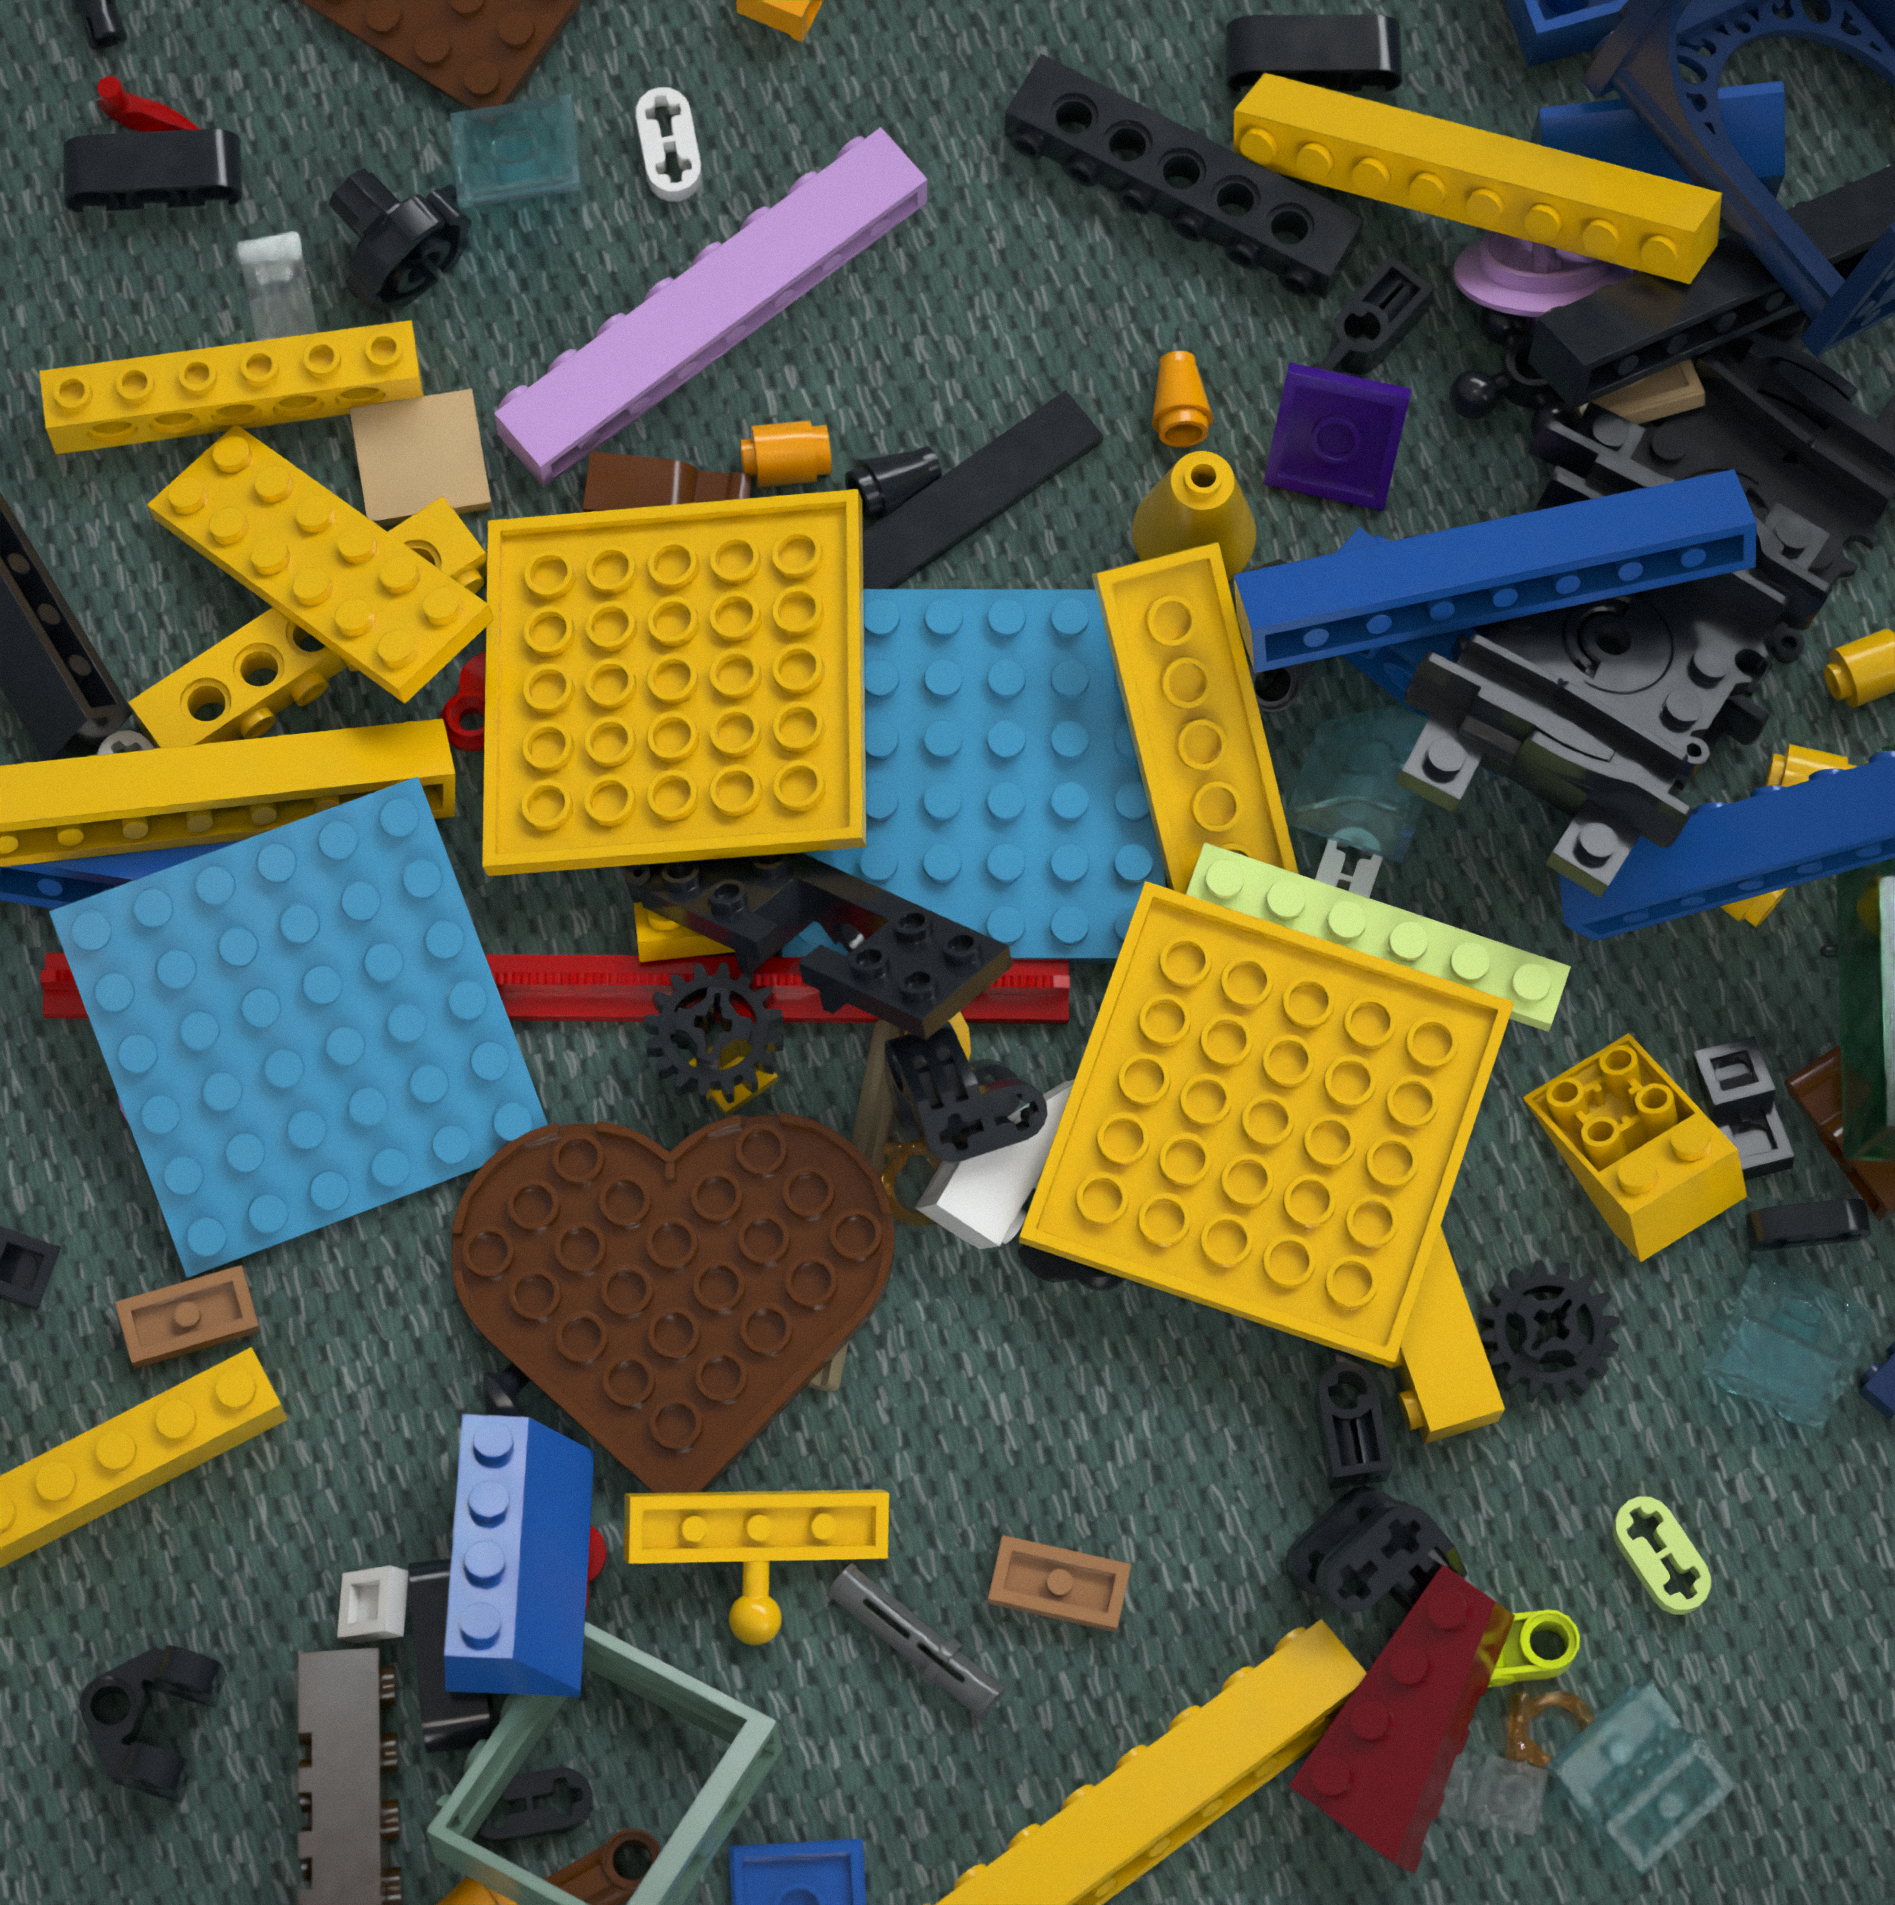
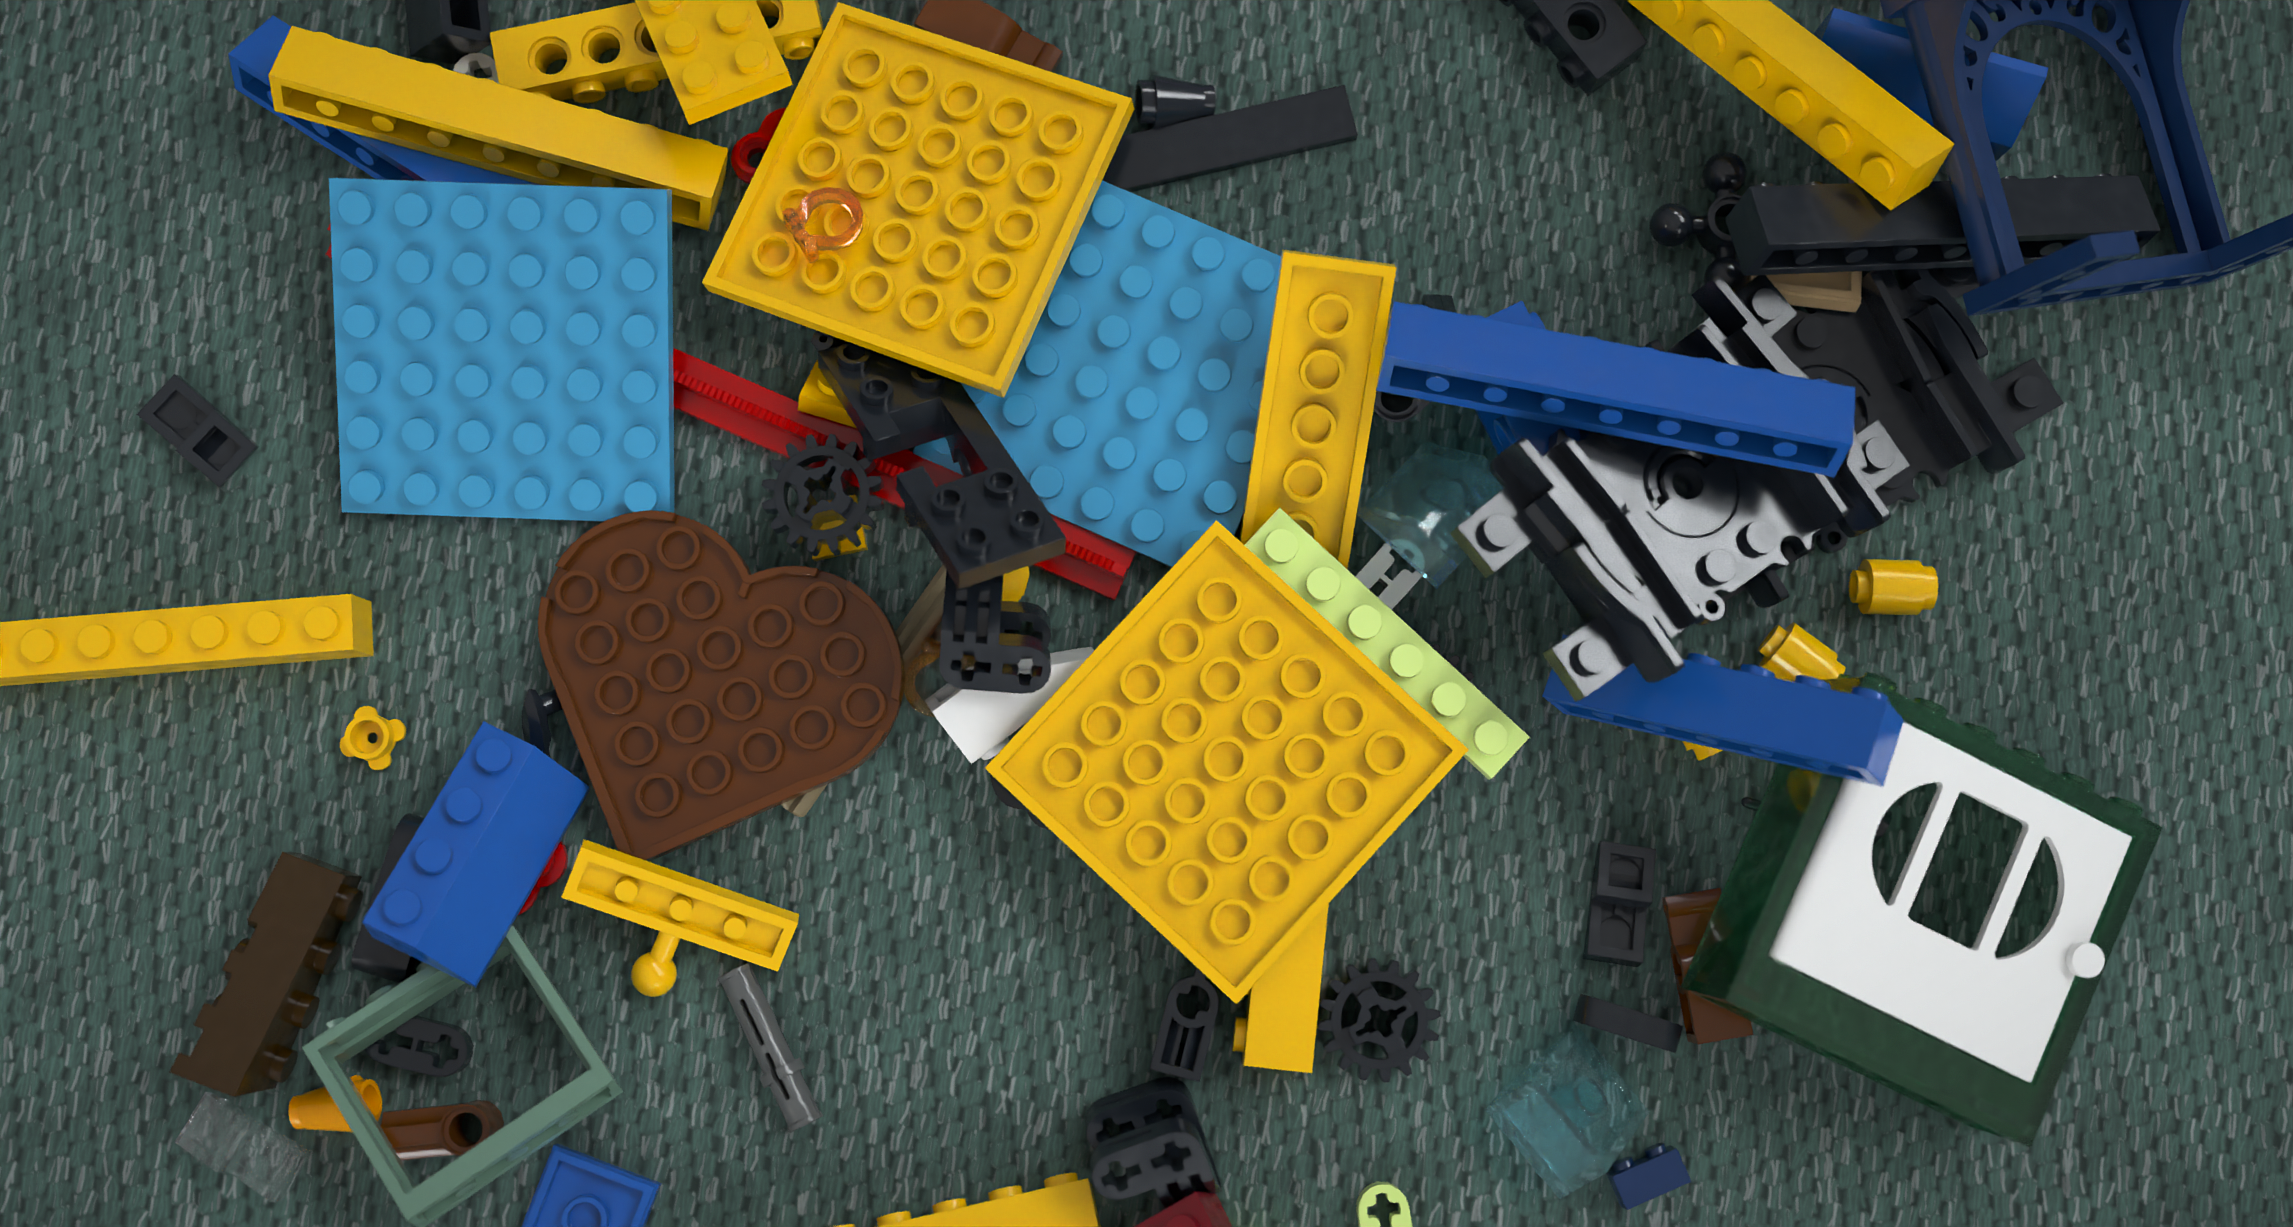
camera: 25 degrees right, 10 degrees up
(169, 1671) = (126, 889): black piece -> none
(187, 1317) = (328, 543): medium nougat plate -> none
(319, 1488) = (356, 736): none -> yellow plate
(372, 1604) = (365, 834): white plate -> none
(588, 776) = (811, 244): none -> clear orange piece
(786, 453) = (1098, 44): light orange brick -> none
(1059, 1583) = (901, 1051): medium nougat plate -> none
(1180, 402) = (1432, 133): light orange cone -> none
(1194, 507) = (1403, 230): yellow cone -> none
(1336, 436) = (1543, 213): dark purple plate -> none
(1380, 311) = (1627, 123): black piece -> none
(1529, 276) = (1760, 147): lavender piece -> none
(1639, 1146) = (1520, 898): yellow slope -> none

